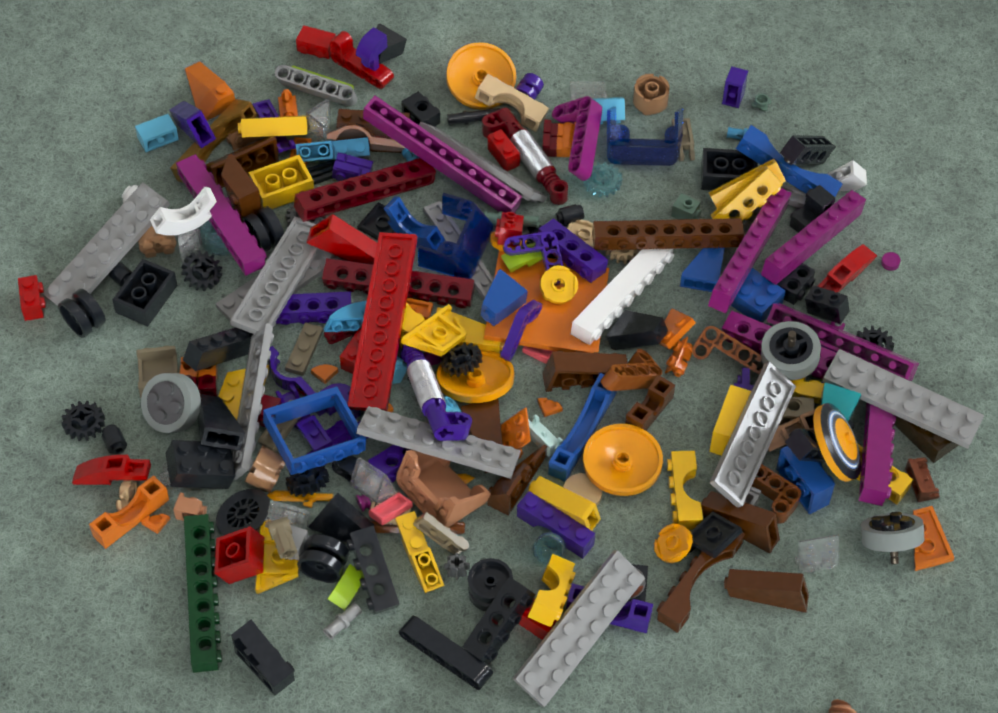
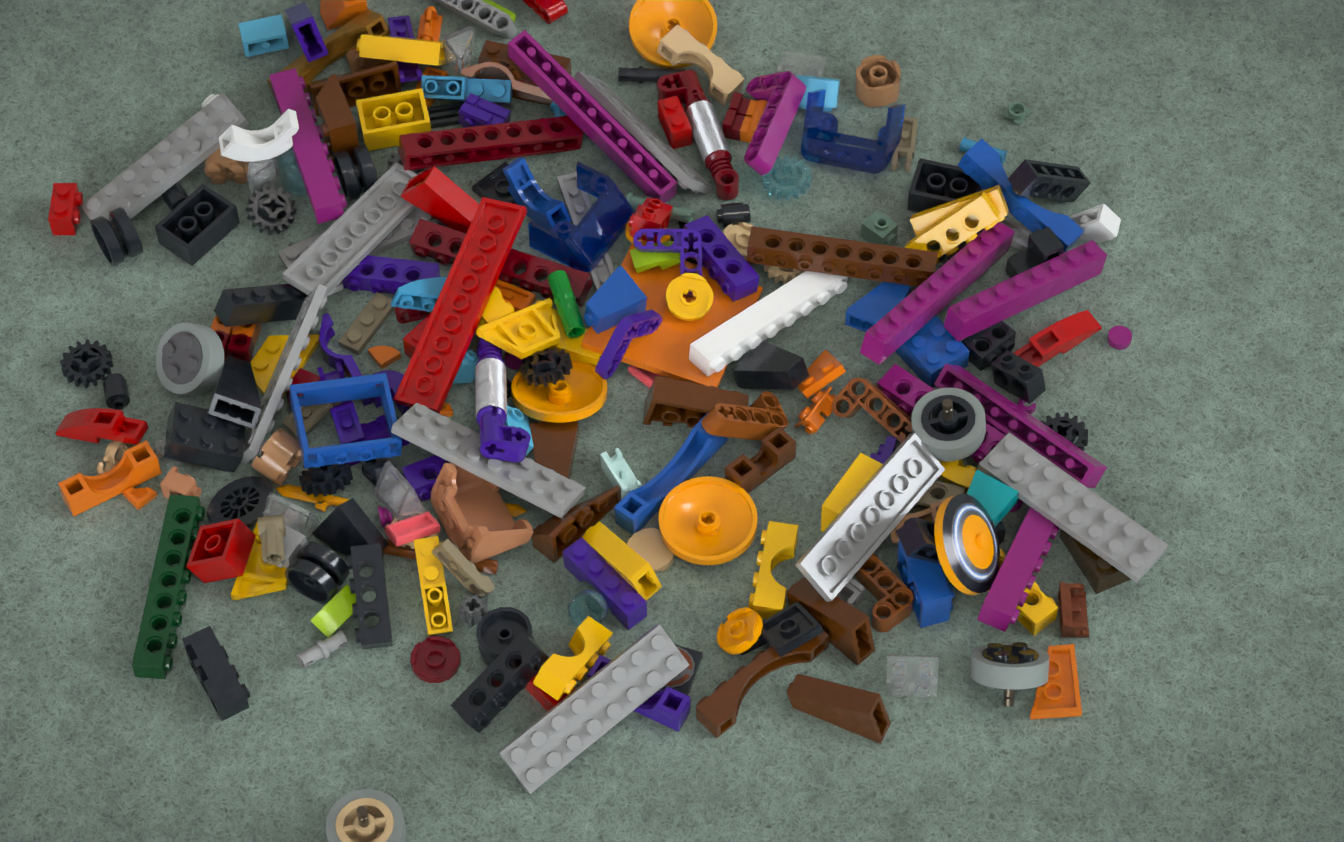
camera: 15 degrees right, 0 degrees up
(155, 362) = (189, 308): dark tan panel -> none
(421, 109) = (588, 57): black brick -> none
(430, 610) = (428, 660): none -> dark red tile
(446, 651) = (432, 708): black beam -> none
(463, 306) = (566, 304): none -> green axle
(516, 431) = (587, 465): orange hinge -> none
(530, 85) = (730, 48): dark purple wheel -> none
(549, 407) = (640, 443): orange tile -> none
(735, 87) = (985, 88): dark purple brick -> none

